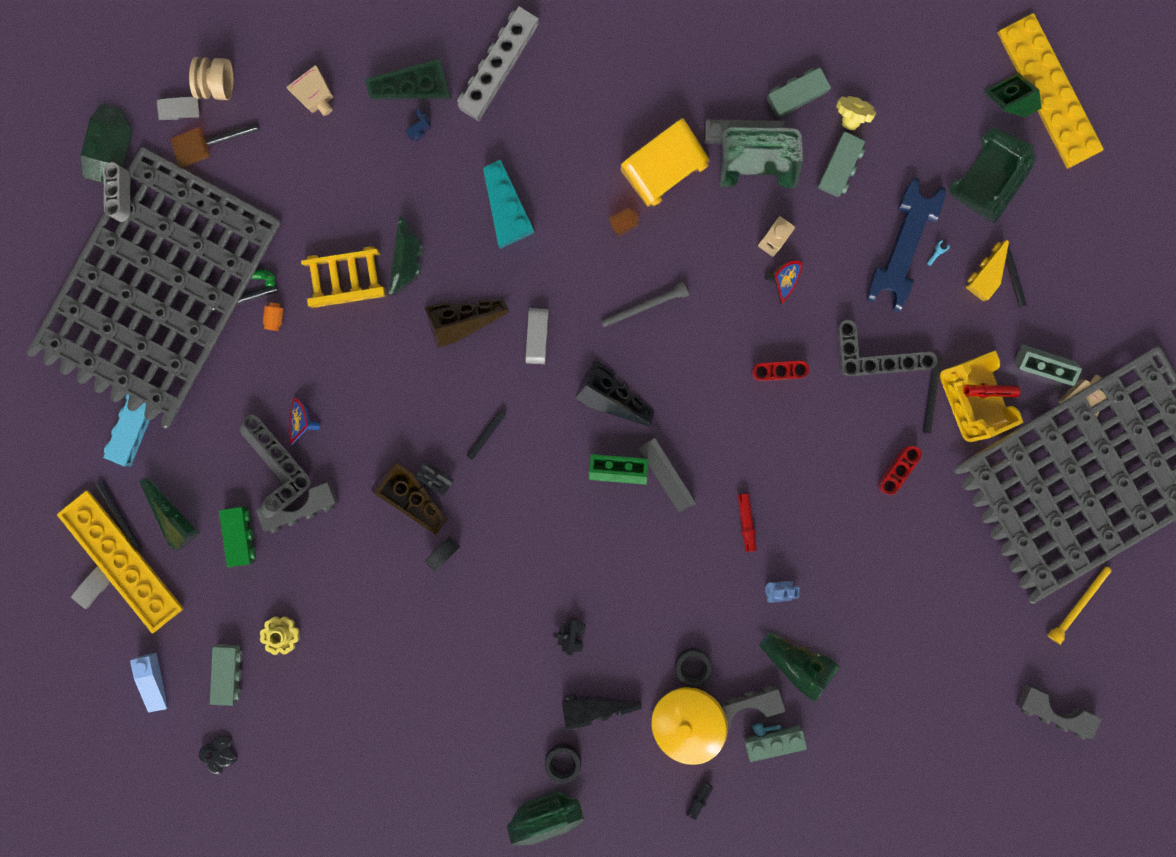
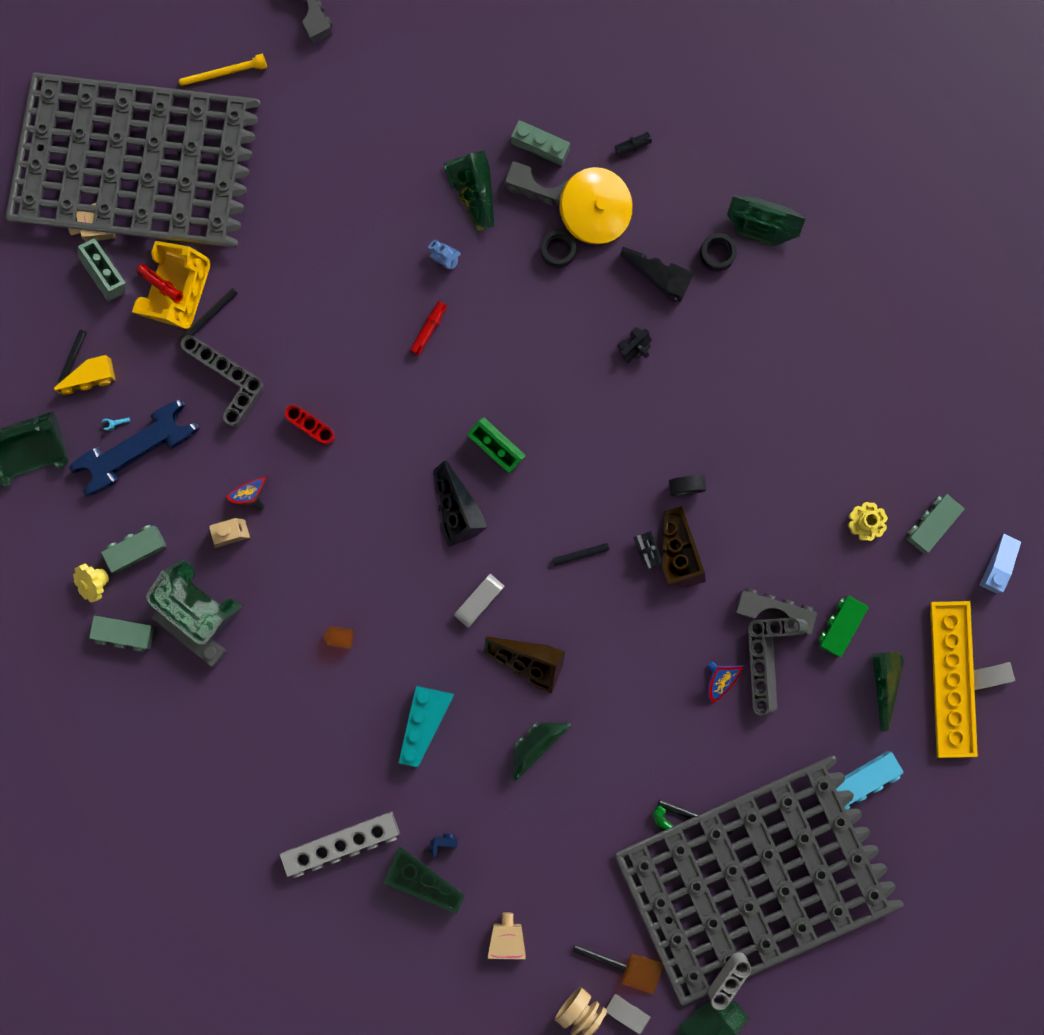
camera: 145 degrees left, 5 degrees down
(118, 515) = (927, 718): black bar -> none
(220, 756) = (987, 463): black plate -> none
(272, 316) = (679, 781): orange brick -> none
(337, 295) = (614, 757): yellow fence -> none
(664, 162) = (270, 657): yellow windscreen -> none
(667, 475) = (462, 412): dark grey fence -> none
(679, 291) = (340, 549): dark grey piece -> none
(760, 730) = (544, 161): medium azure hand -> none
(908, 466) = (269, 277): red beam -> none

